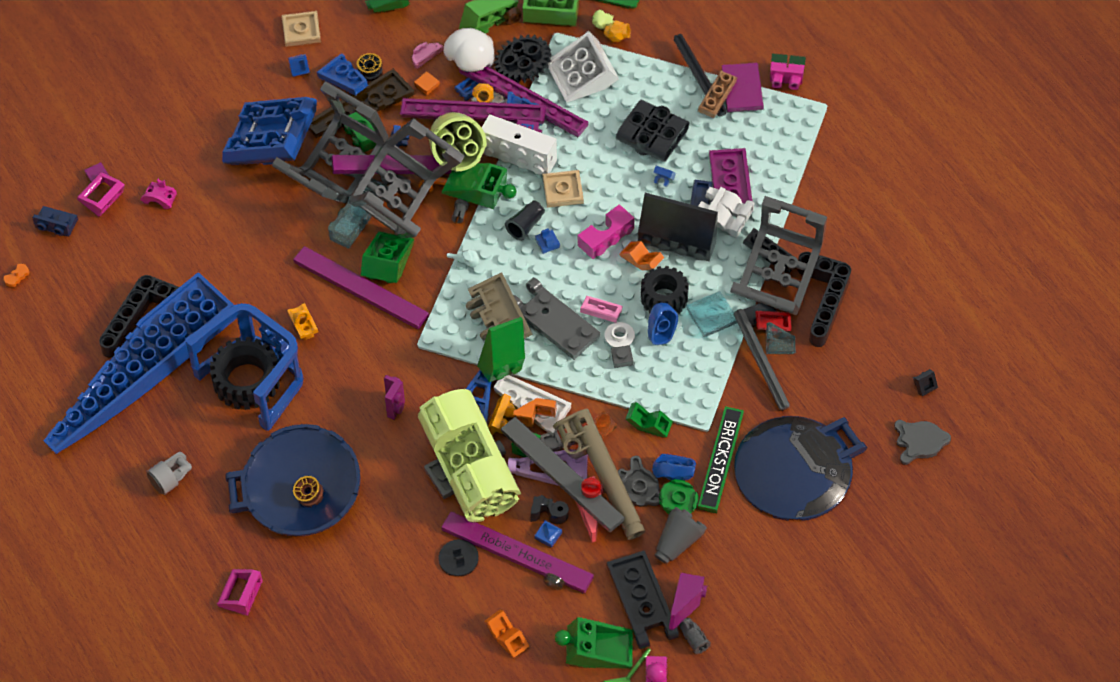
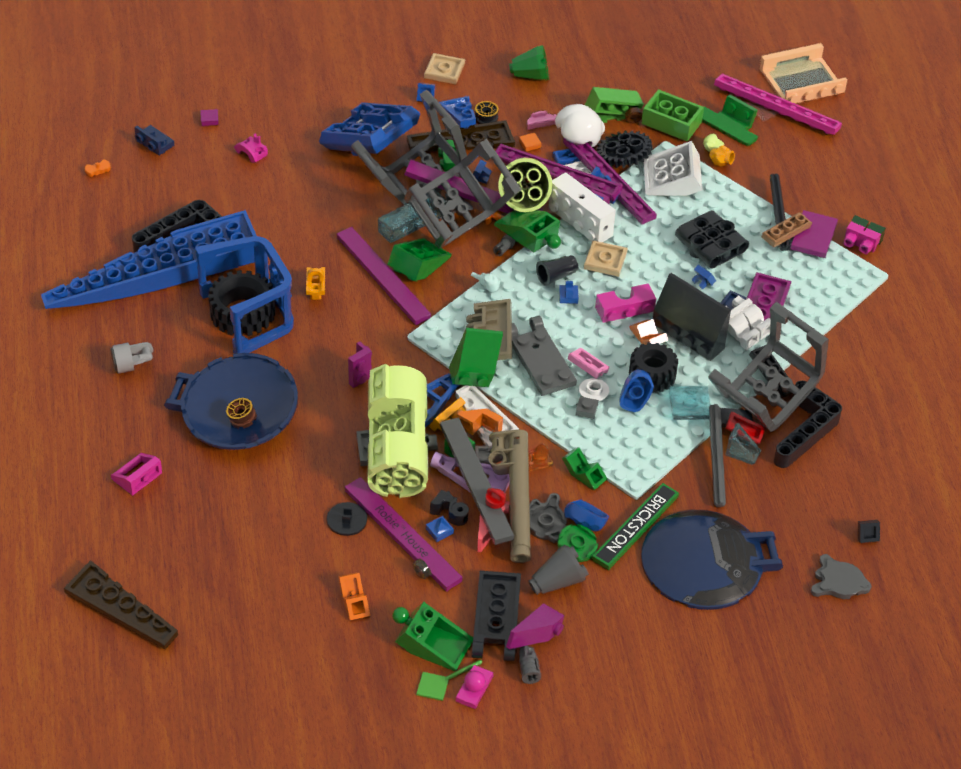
camera: 20 degrees right, 10 degrees down
(99, 208) = (204, 137): dark pink tile -> none
(483, 92) = (573, 160): light orange rock -> none

